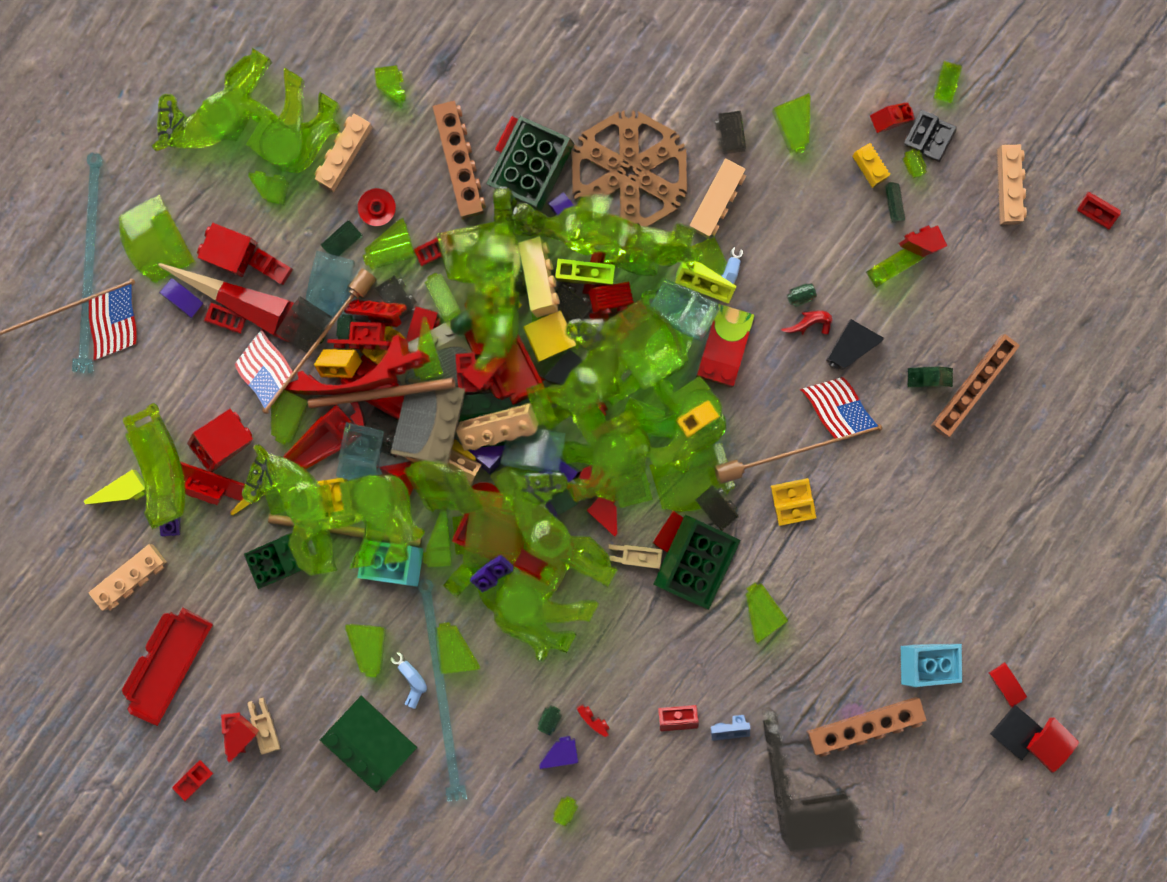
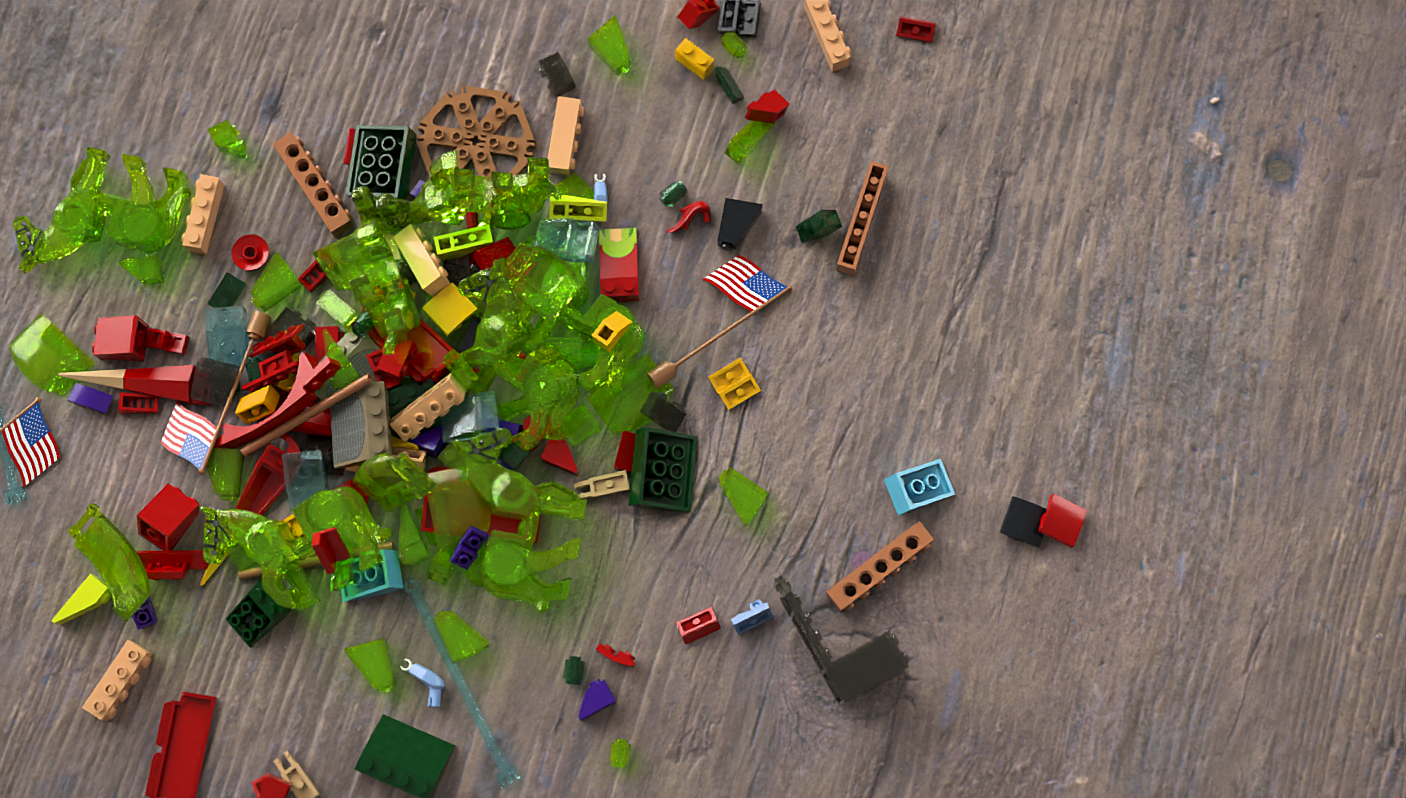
camera: 20 degrees left, 10 degrees down
(362, 531) = (329, 548): none -> red panel
(1008, 685) = (999, 480): red slope -> none

